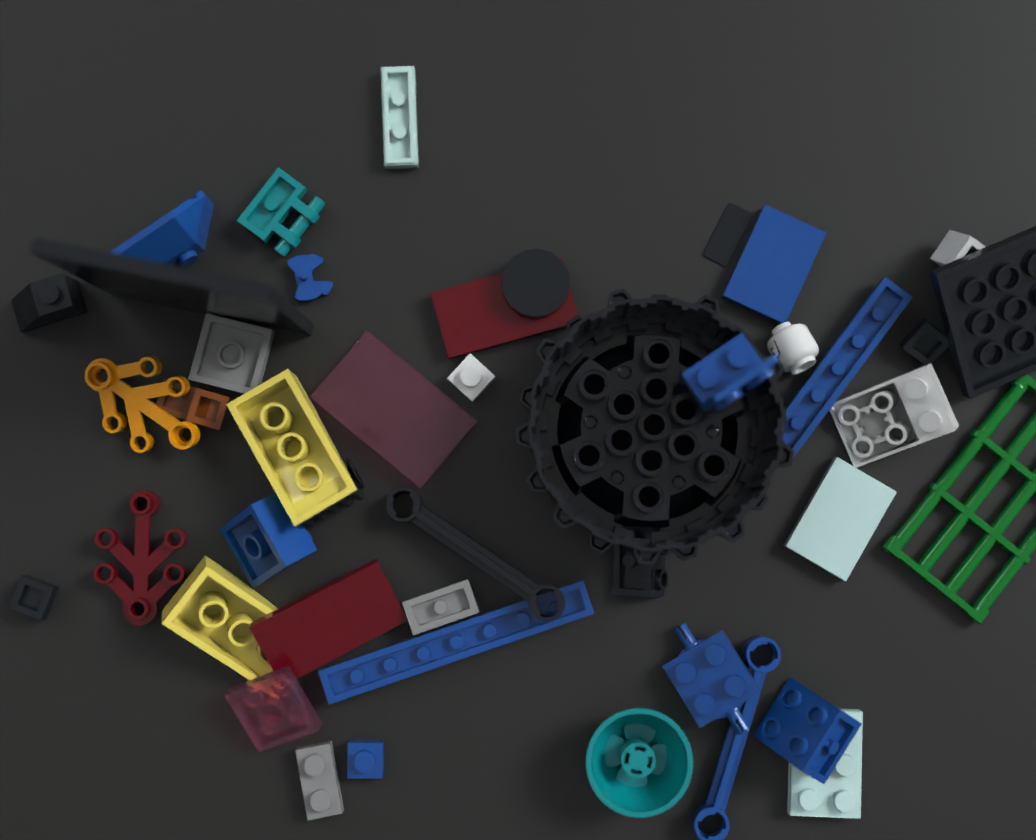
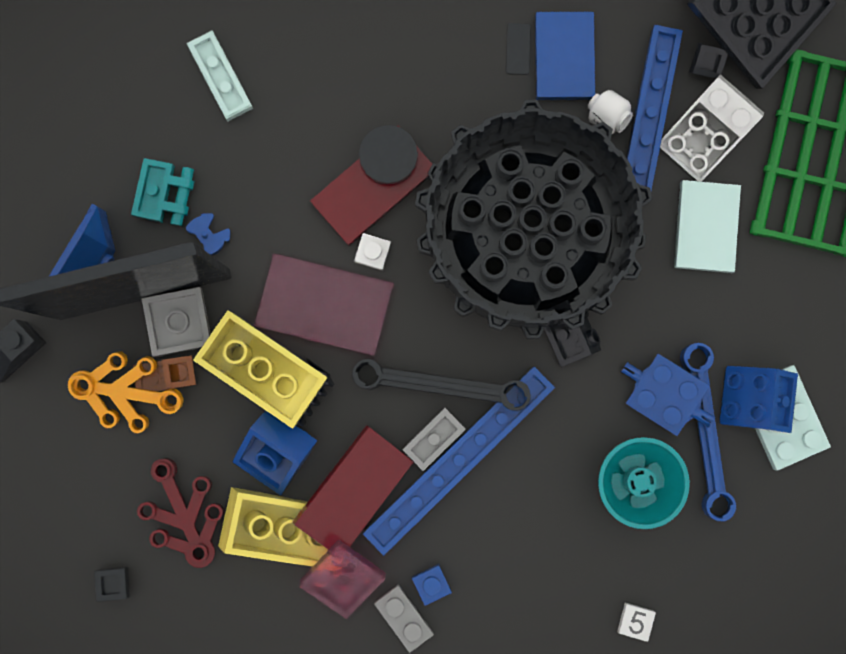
camera: 30 degrees left, 0 degrees up
(720, 375) = (567, 153): blue bracket -> none

